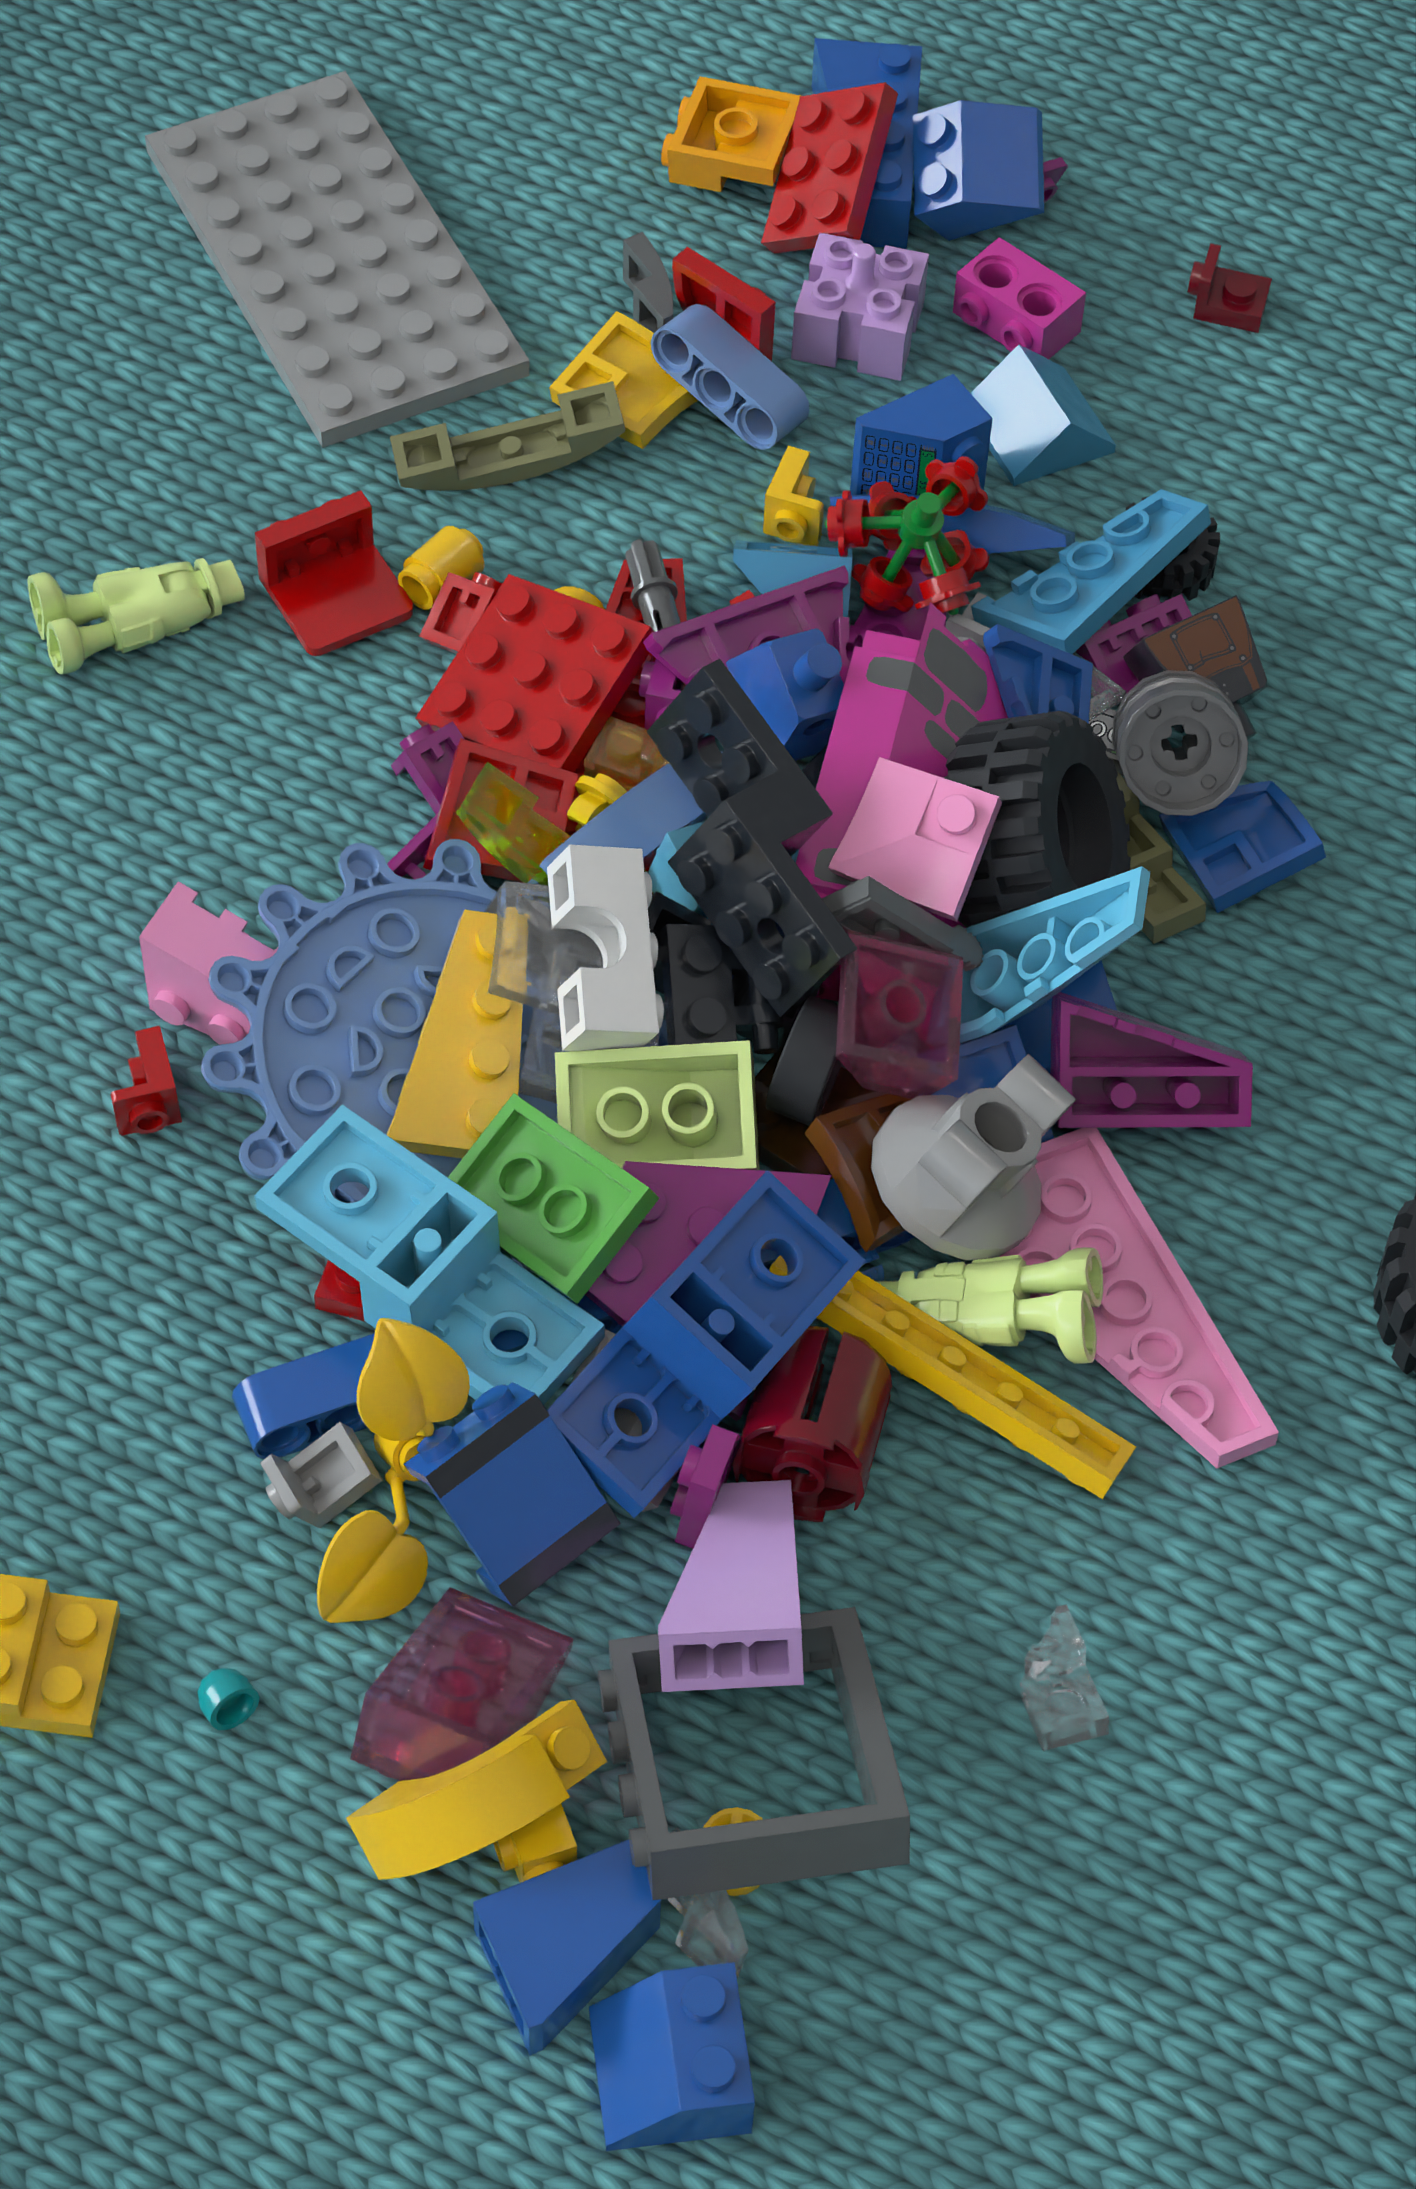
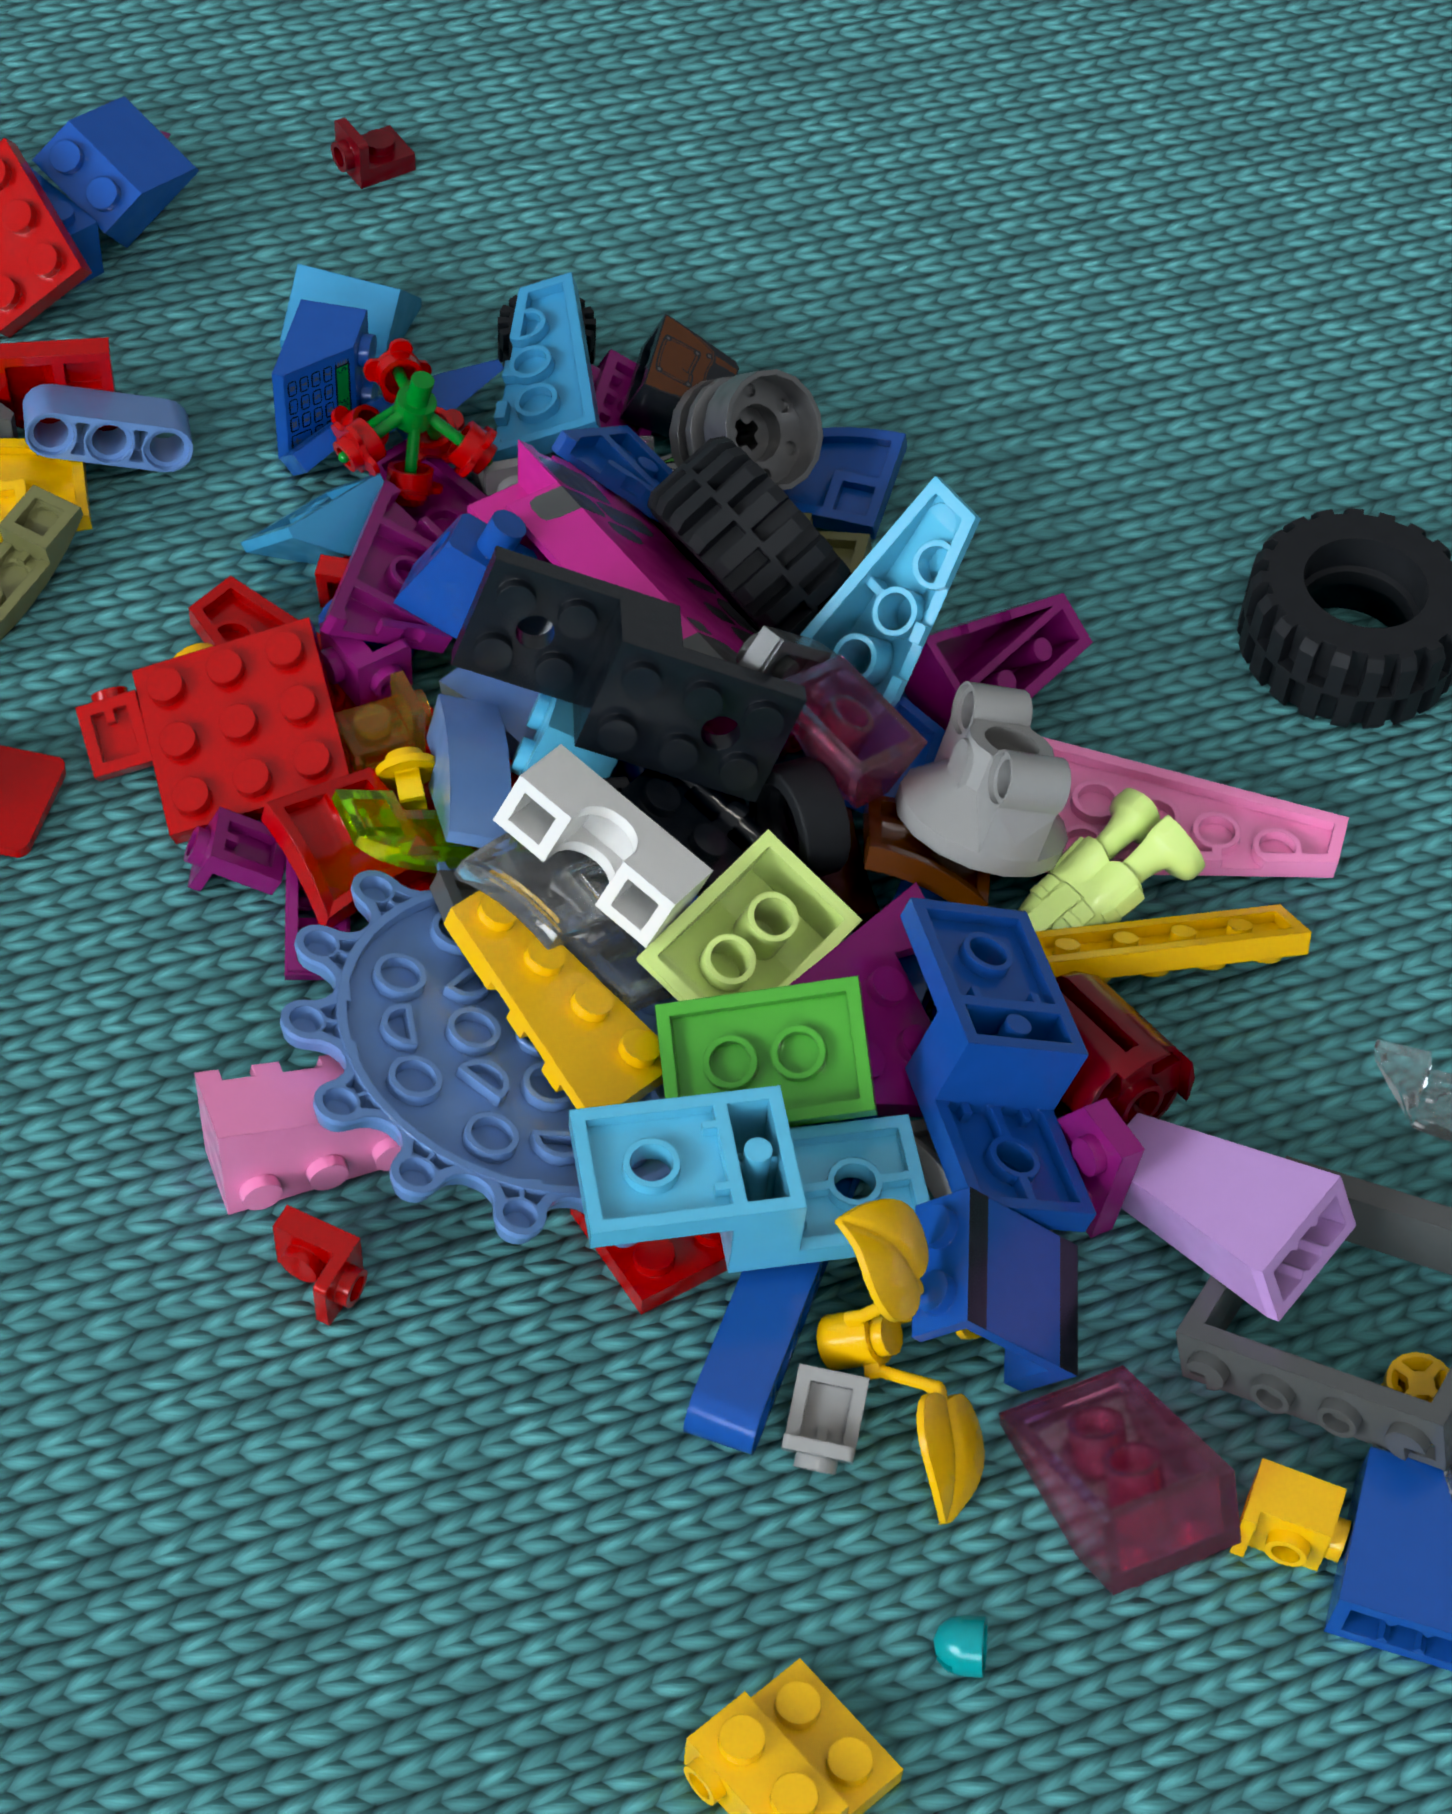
camera: 50 degrees left, 5 degrees down
(427, 568) = (50, 713): yellow brick -> none
(480, 1801) = (1267, 1538): yellow arch -> none
(652, 589) = (246, 604): dark grey axle -> none
(789, 503) = (256, 490): yellow bracket -> none
(859, 306) = (145, 316): lavender brick -> none
(918, 837) = (730, 585): bright pink plate -> none
(1018, 300) = (241, 247): dark pink brick -> none

